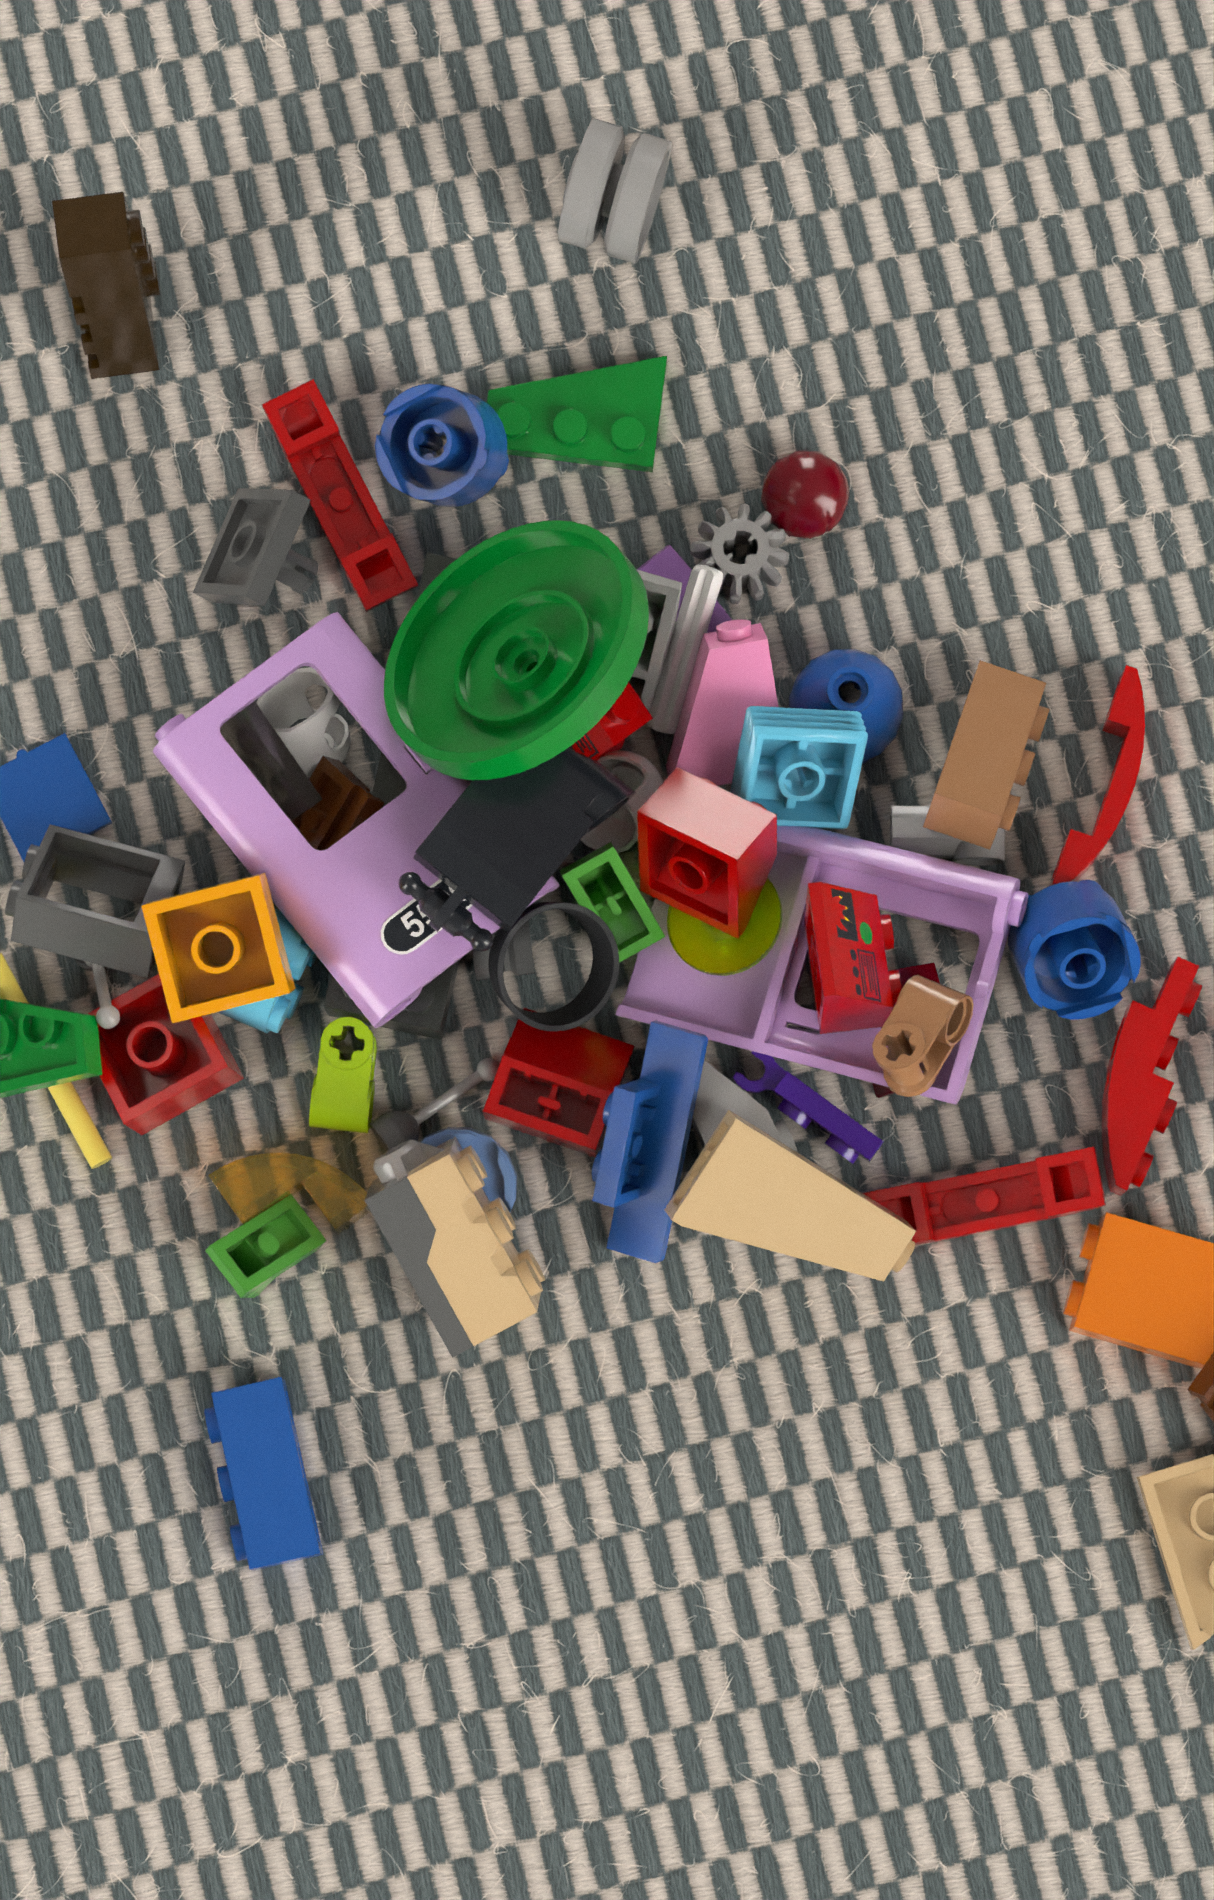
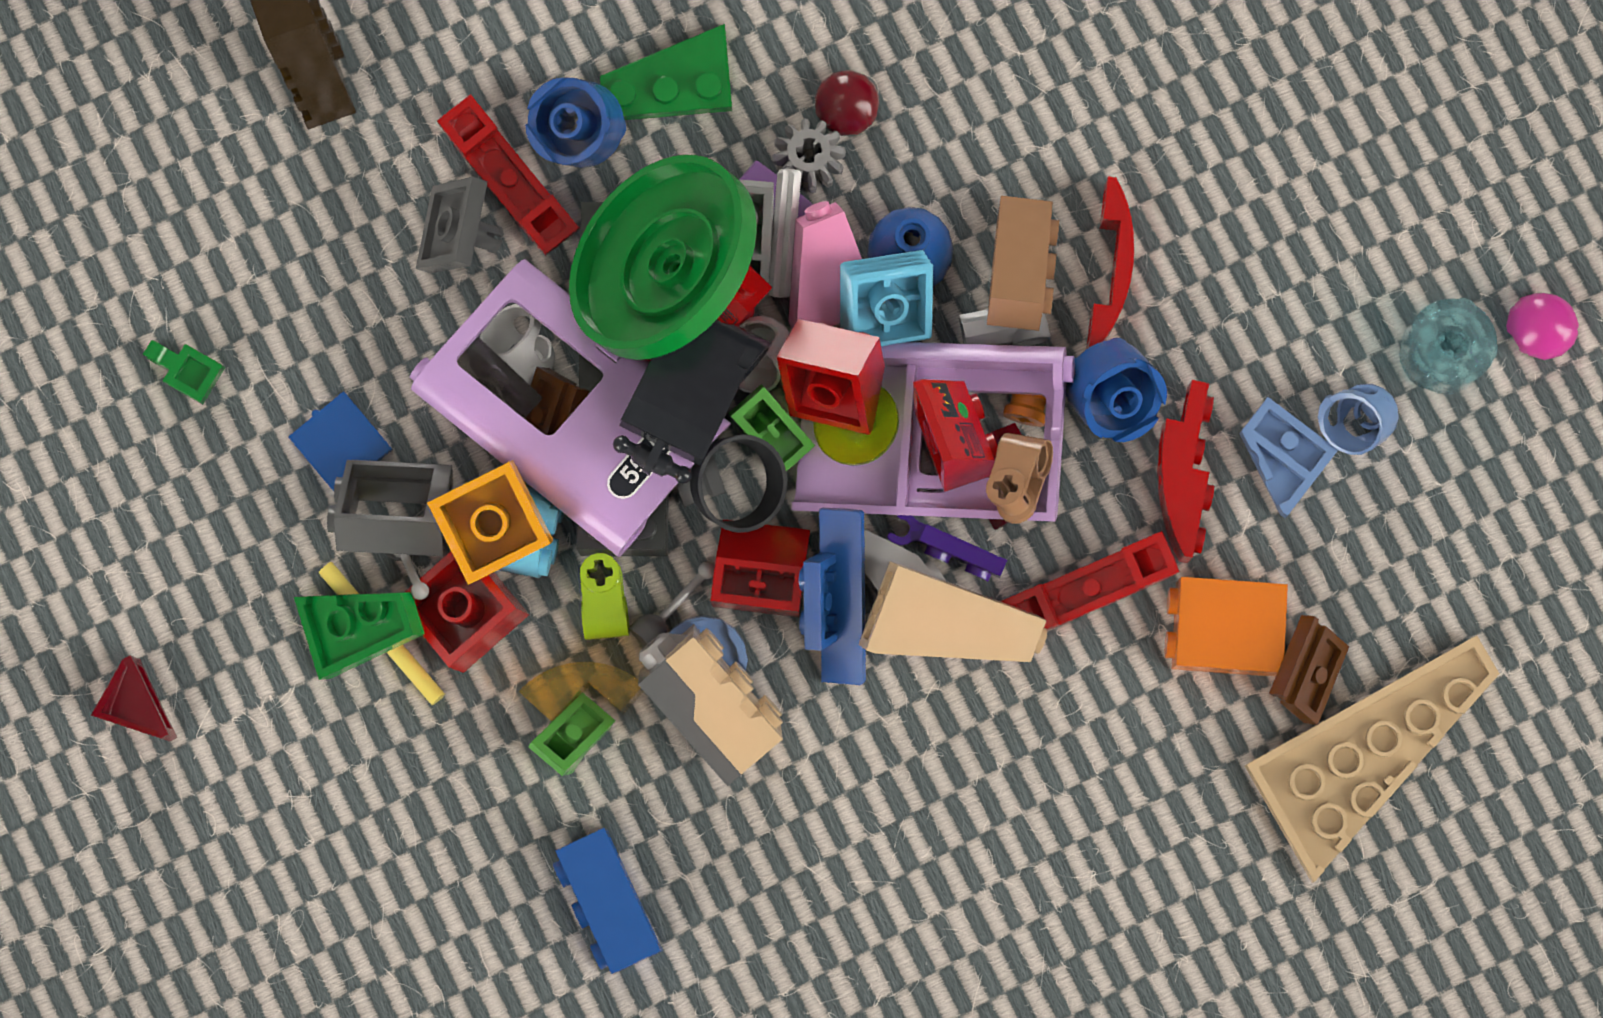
camera: 10 degrees left, 0 degrees up
(952, 948) = (1026, 409): none -> orange wheel

